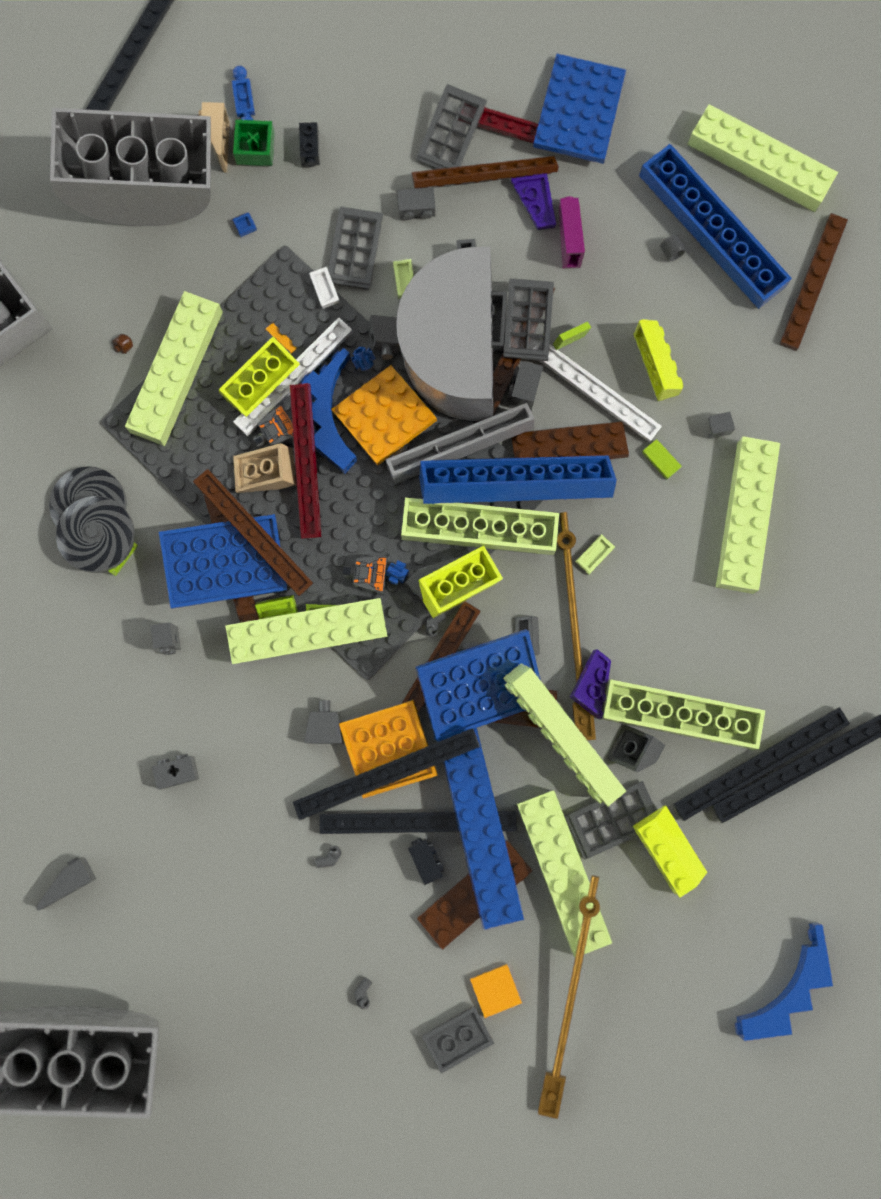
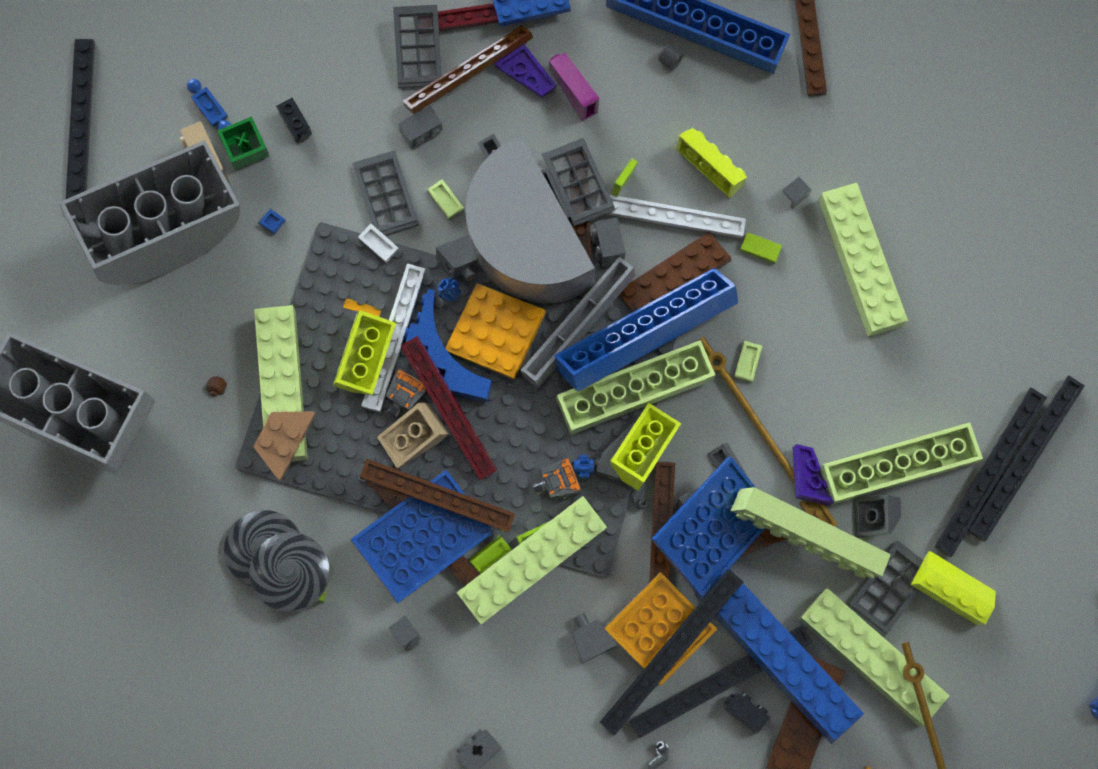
camera: 30 degrees left, 5 degrees down
(146, 415) = (282, 438): none -> medium nougat wing

